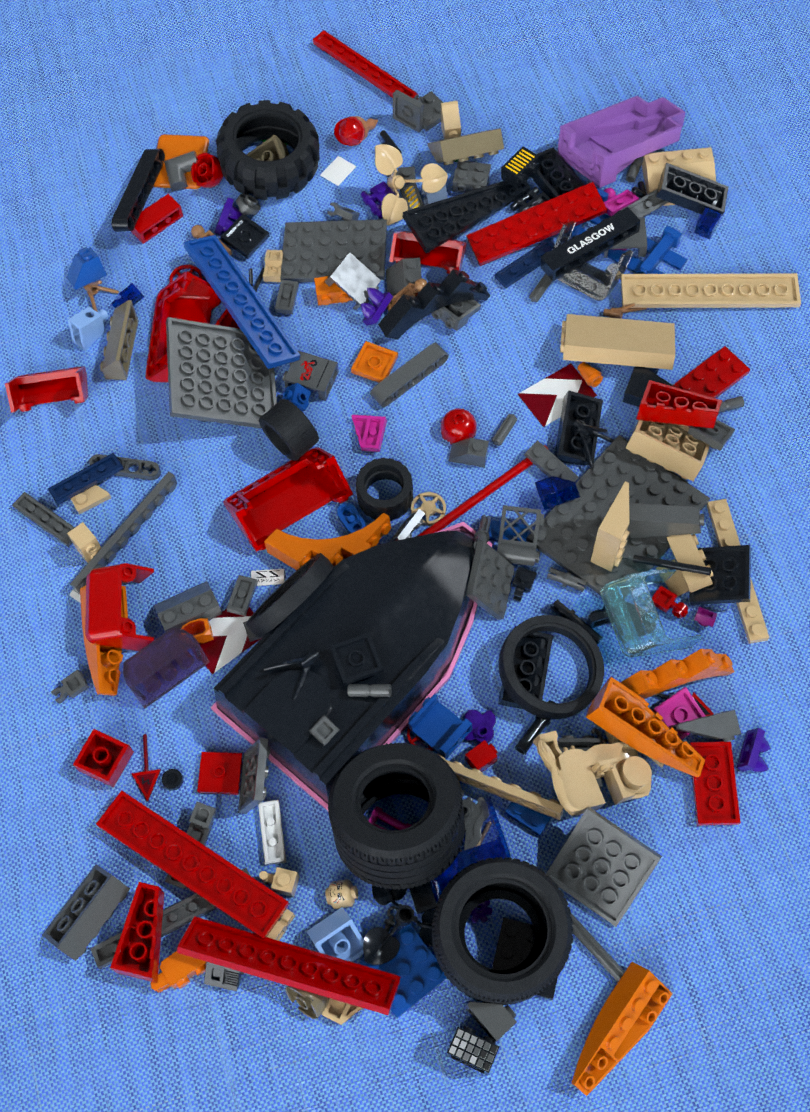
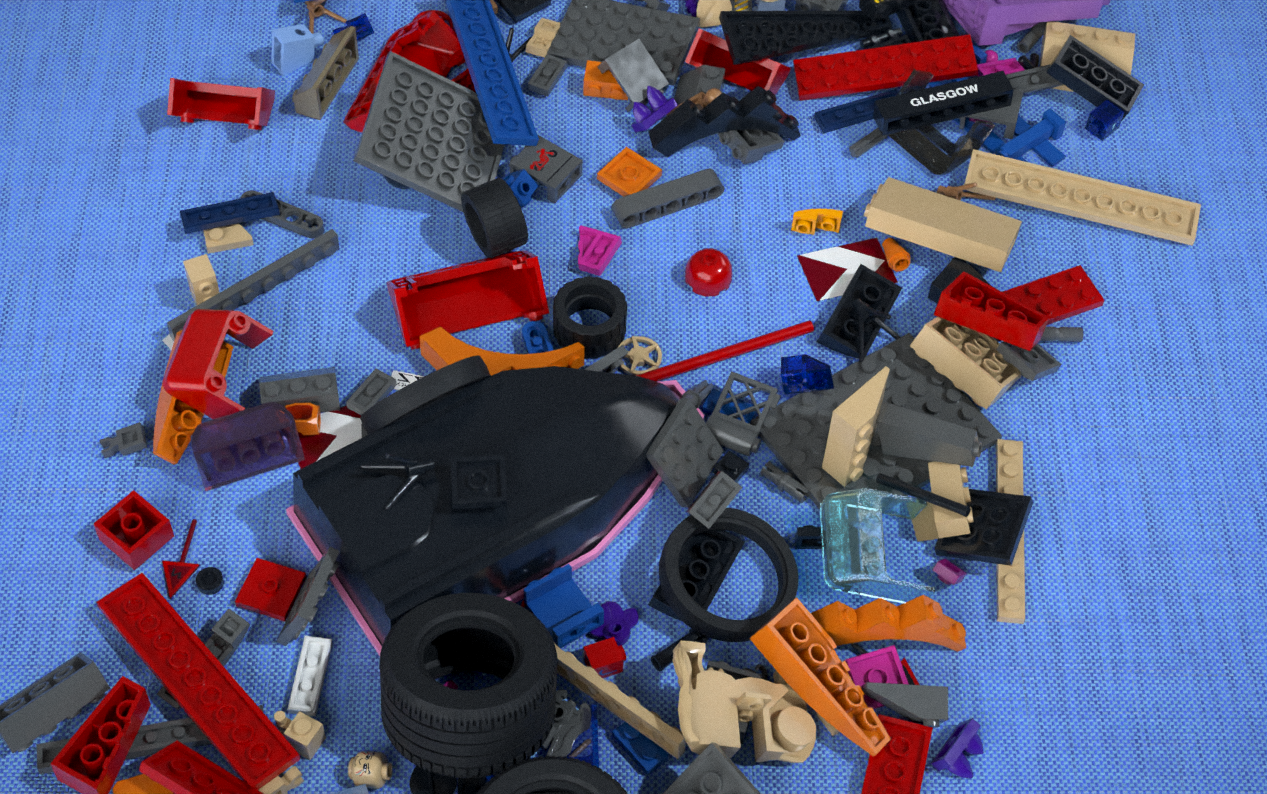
camera: 10 degrees right, 10 degrees down
(44, 518) = (162, 244): dark grey tile -> none
(323, 730) = (409, 553): dark grey tile -> none
(366, 690) = (485, 523): dark grey piece -> none
(470, 452) = (713, 304): dark grey slope -> none
(504, 429) = (765, 290): dark grey axle -> none
(524, 613) = (714, 499): none -> dark grey panel
(530, 360) = (808, 220): none -> light orange slope
(549, 463) = (807, 339): dark grey plate -> none
(561, 610) = (766, 514): black pin -> none
(665, 599) = (903, 538): red plate -> none

